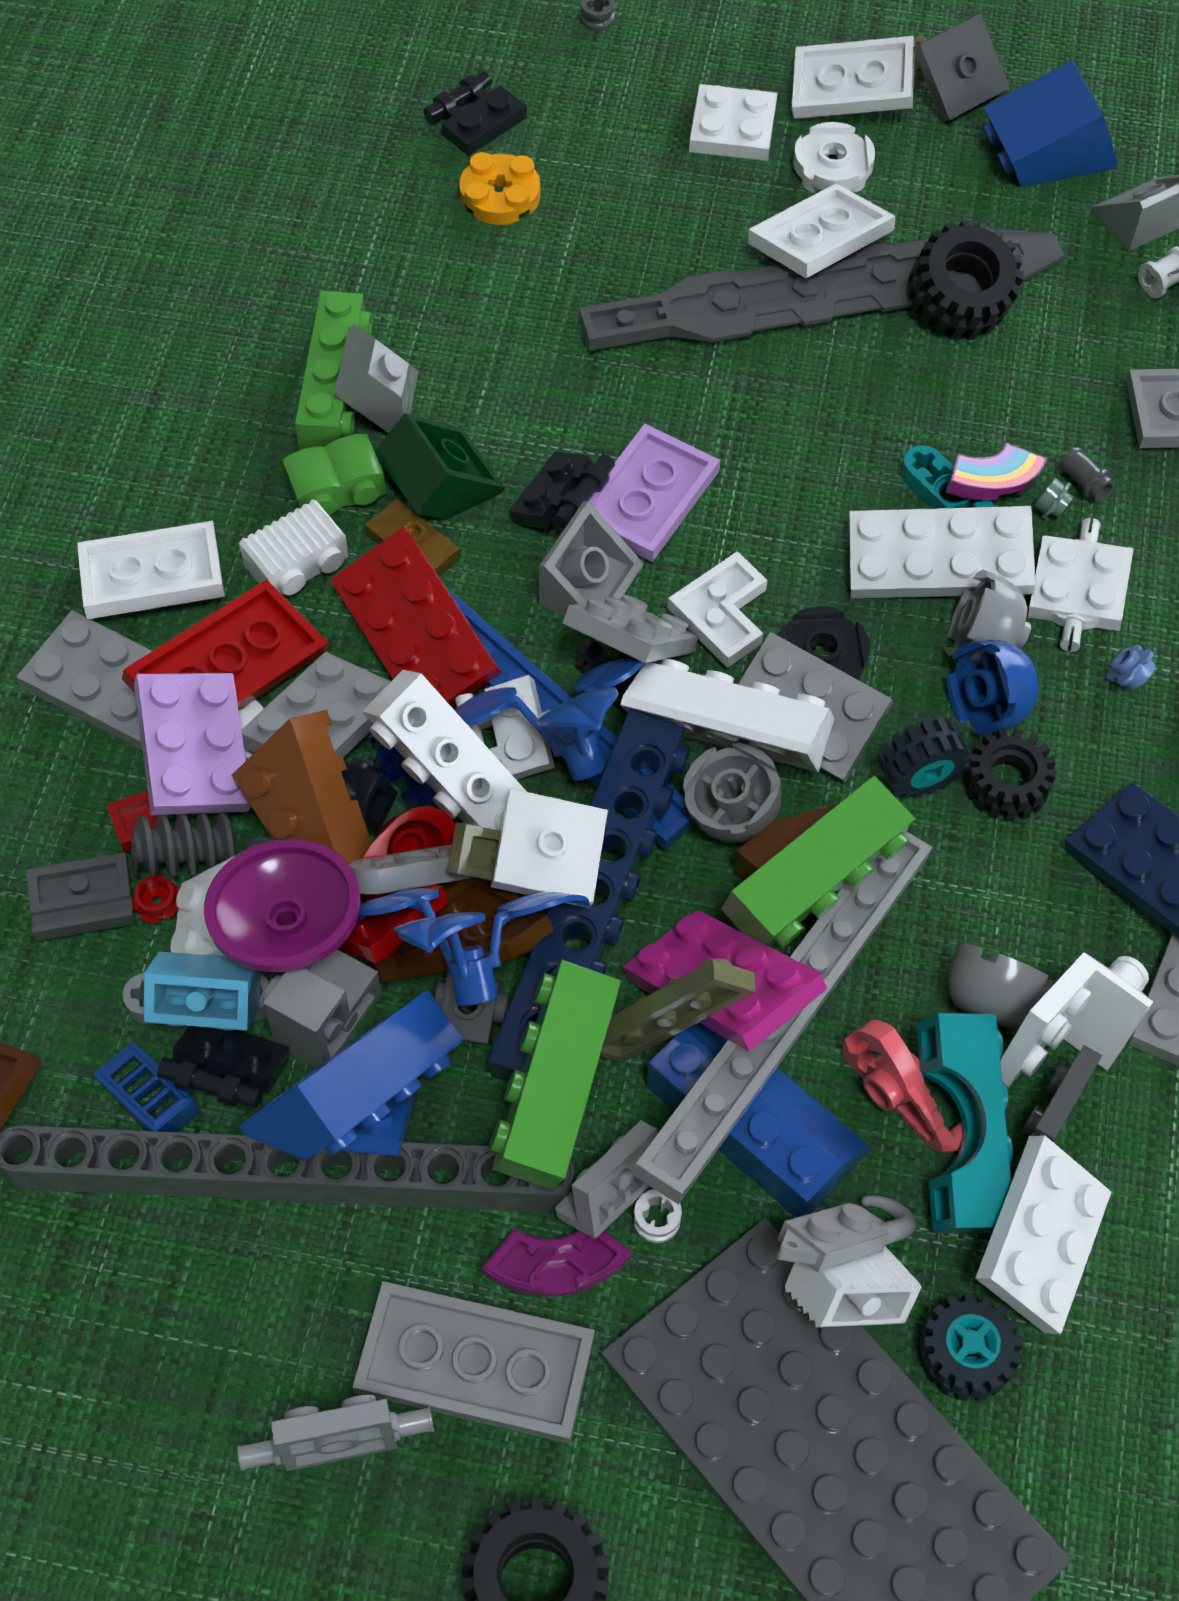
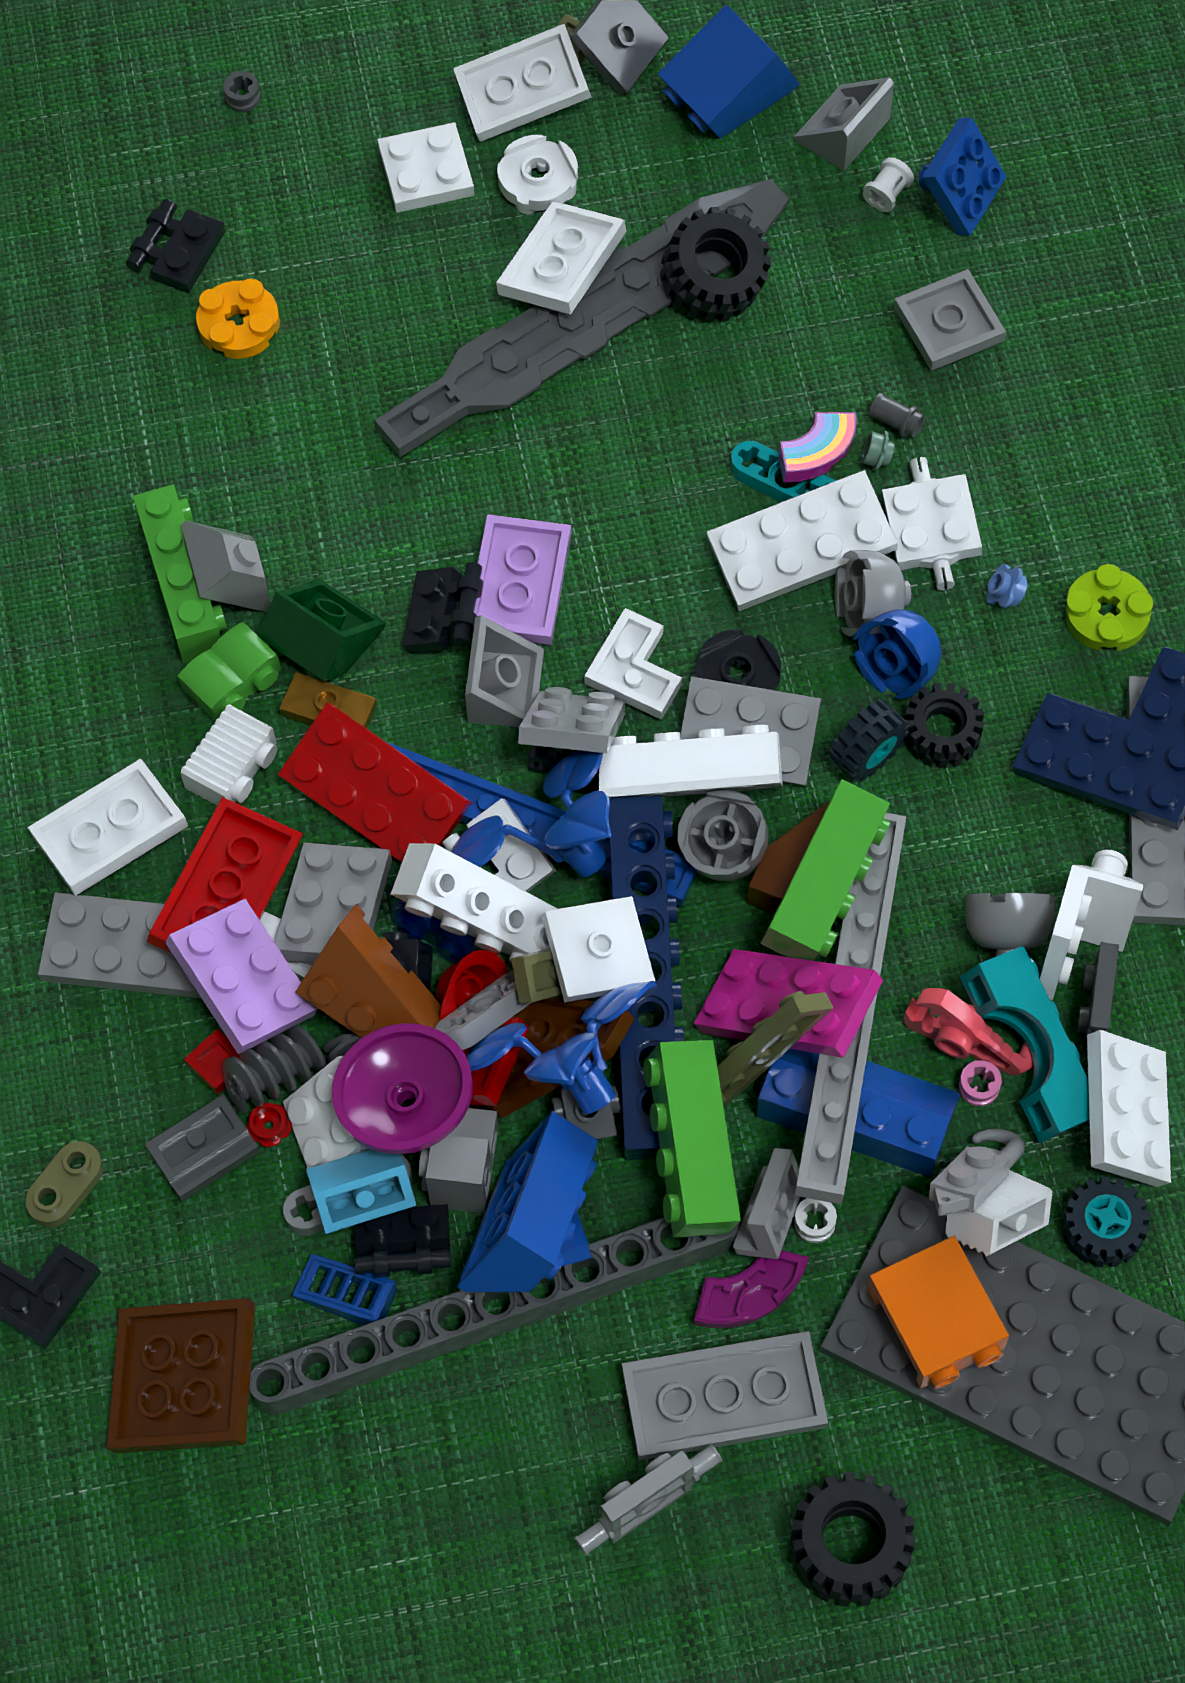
camera: 20 degrees left, 5 degrees up
(739, 1369) = (940, 1313): none -> orange panel
(908, 1154) = (989, 1071): none -> bright pink bush

